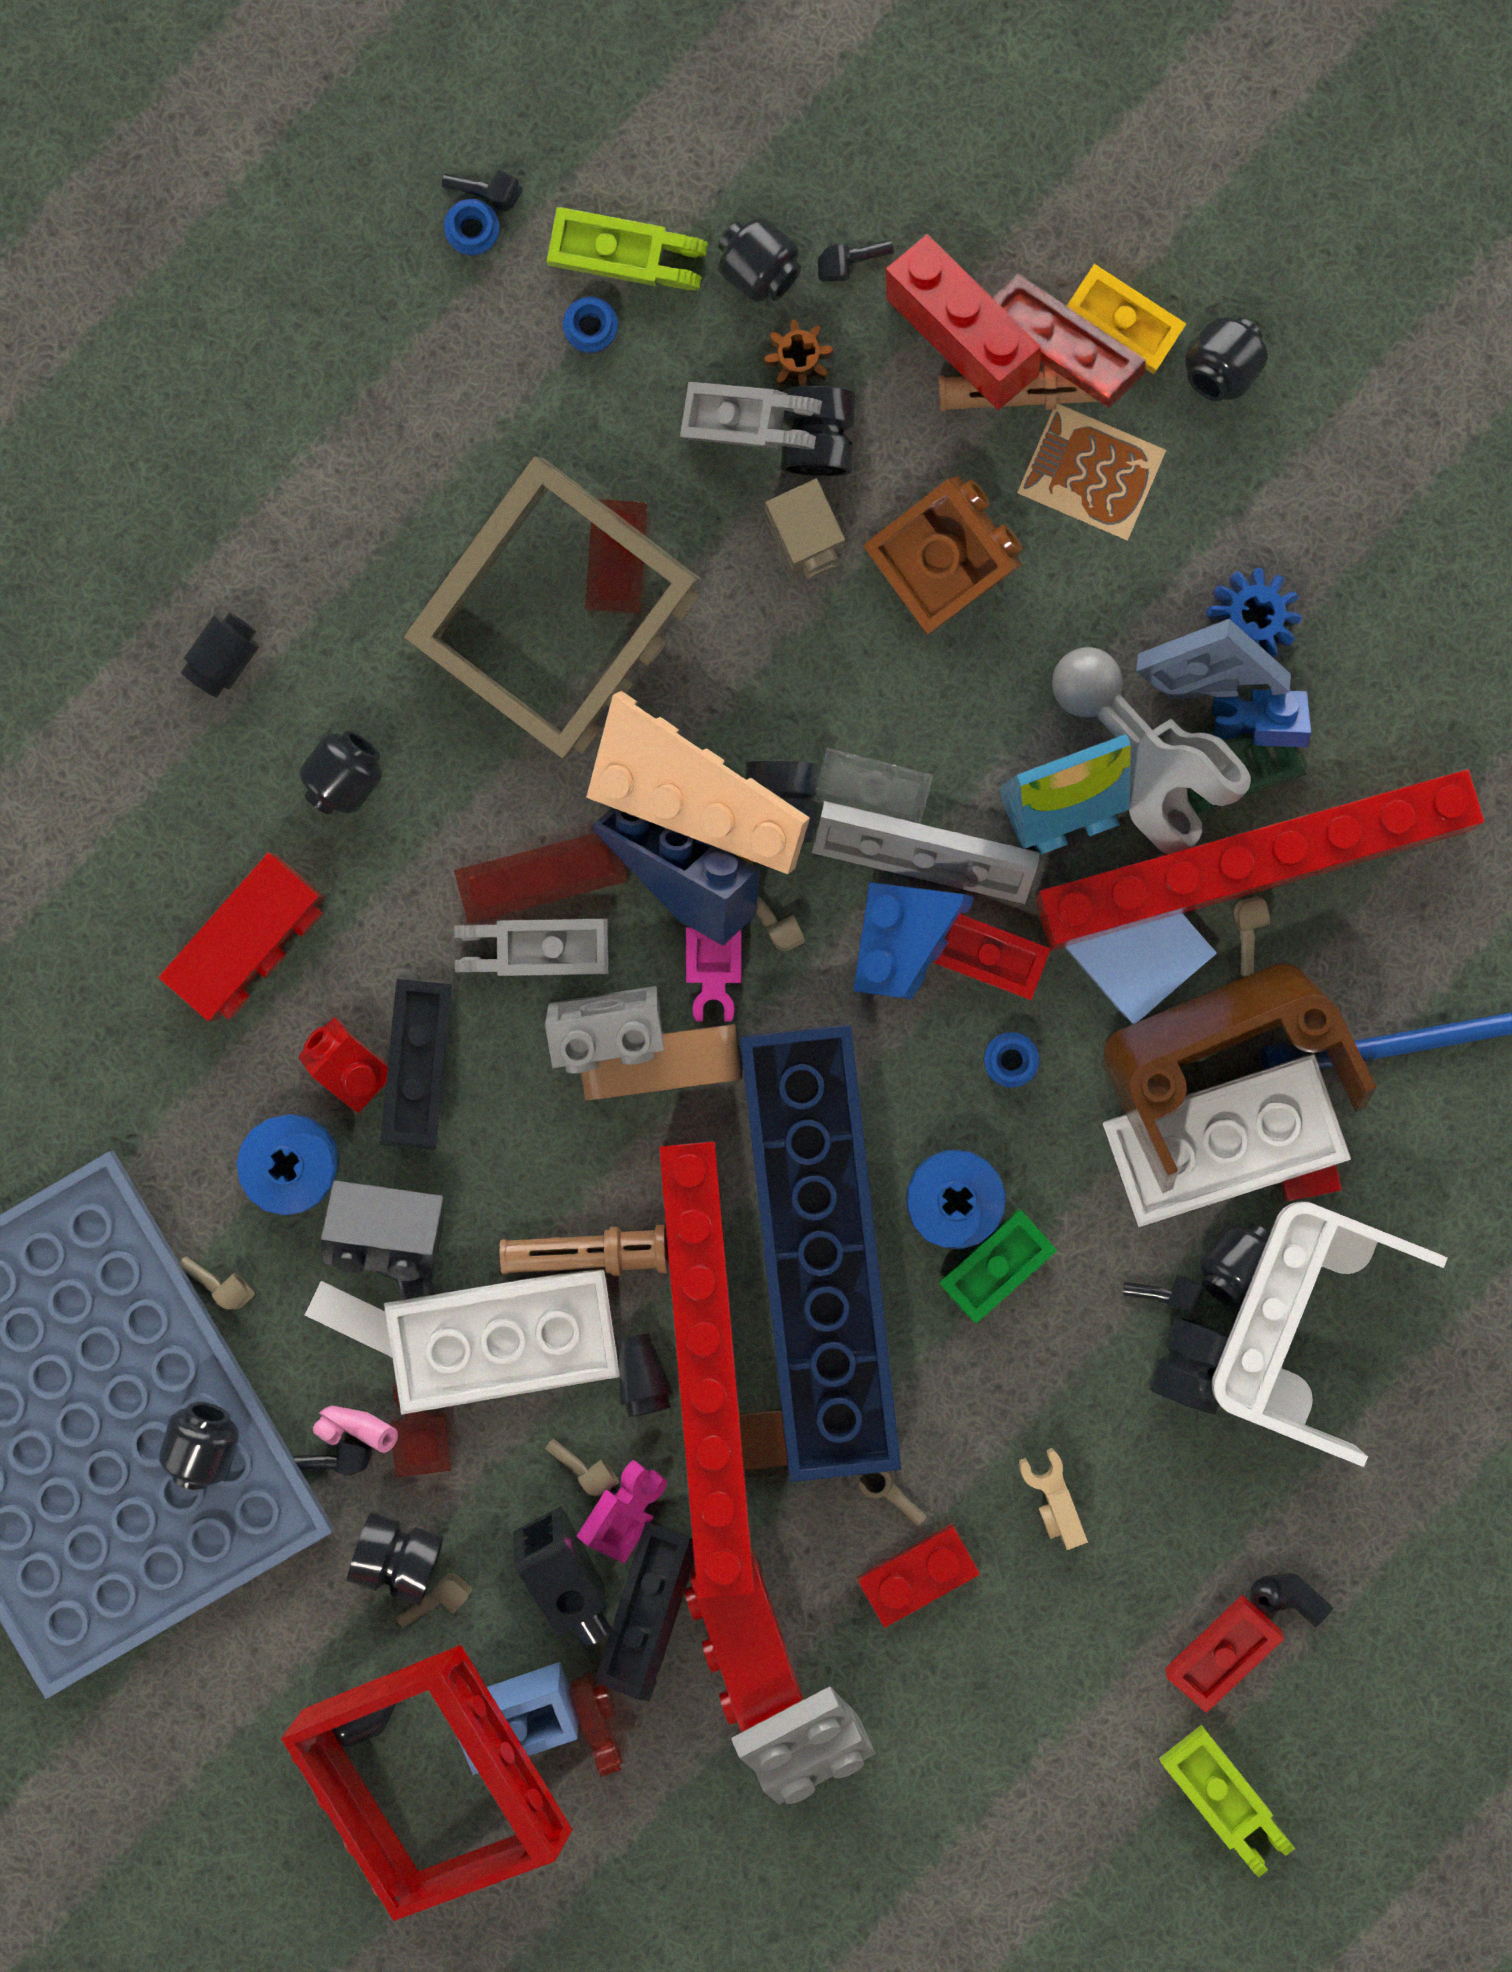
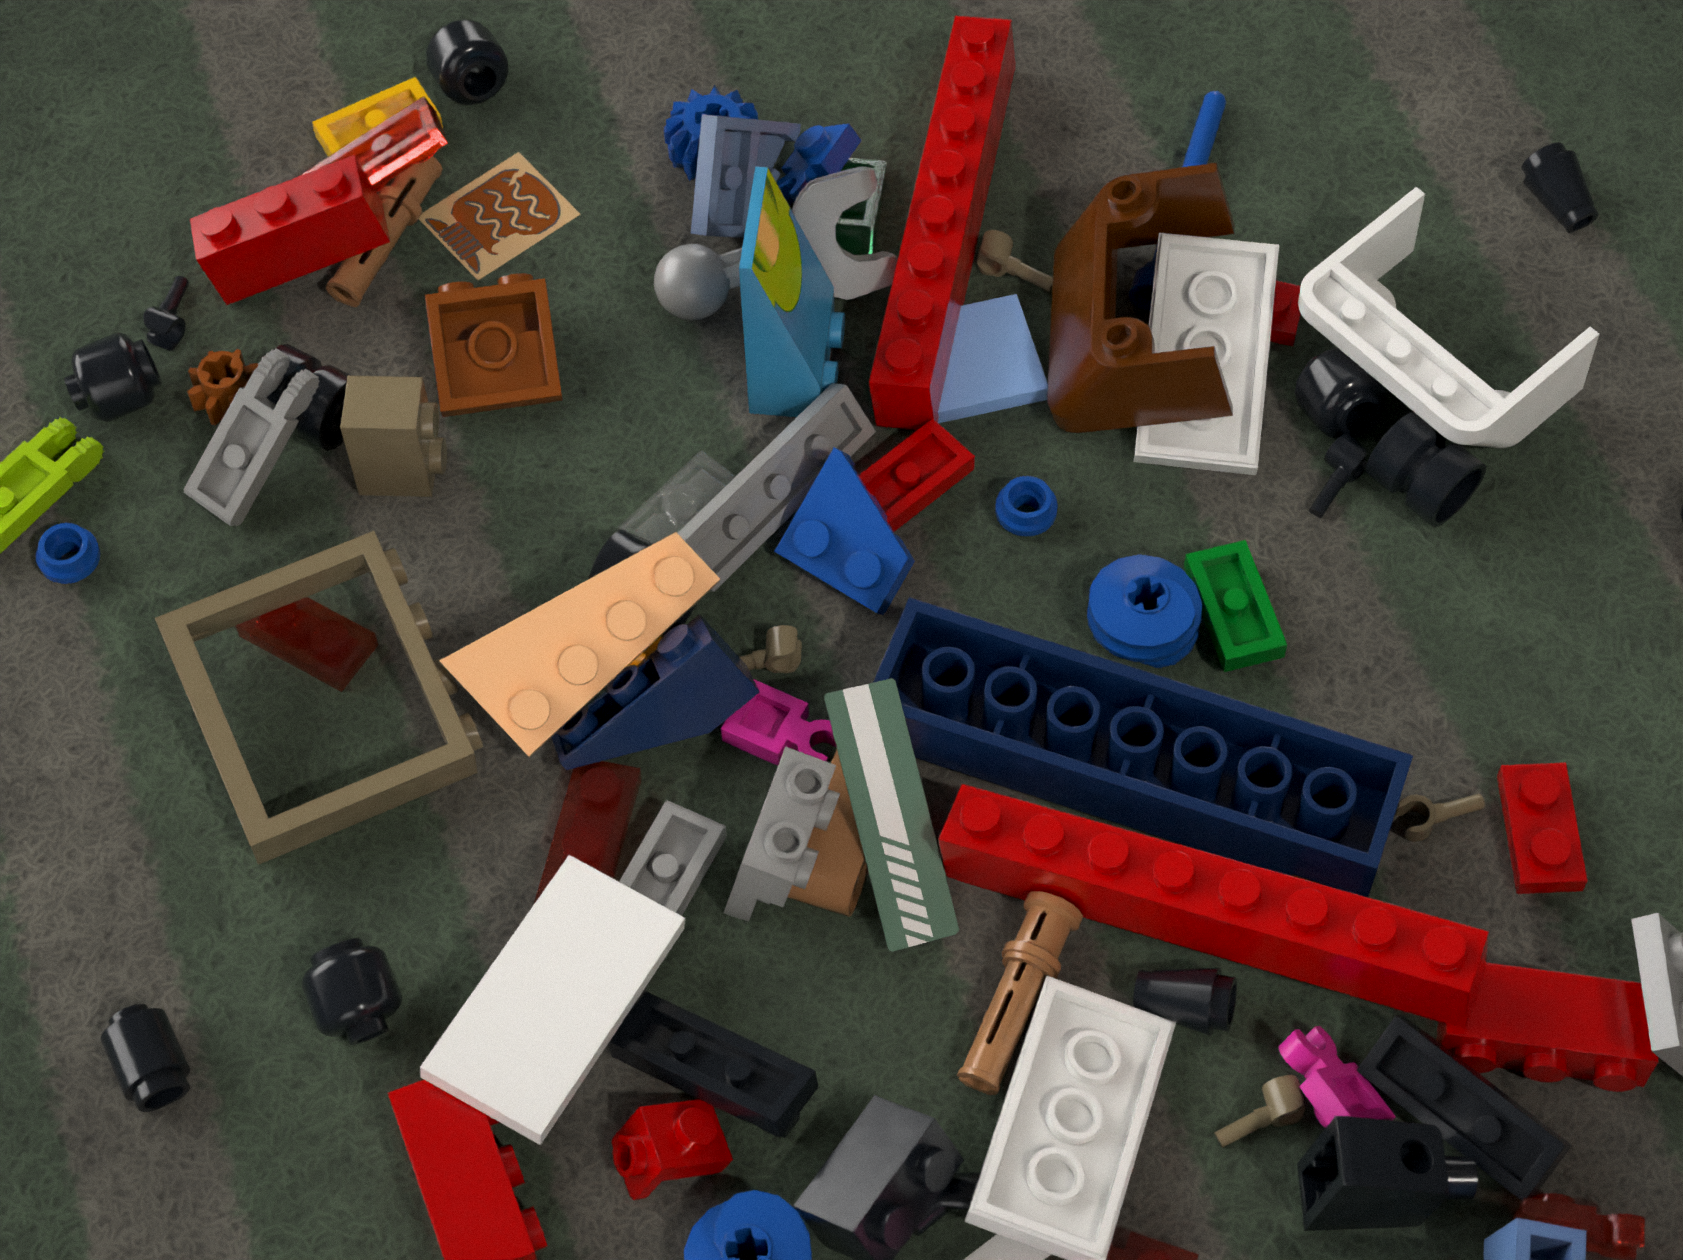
camera: 65 degrees left, 30 degrees down
(397, 931) = (553, 999): none -> white tile
(669, 1097) = (891, 814): none -> sand green sticker
(1060, 1513) = (1523, 652): tan plate -> none

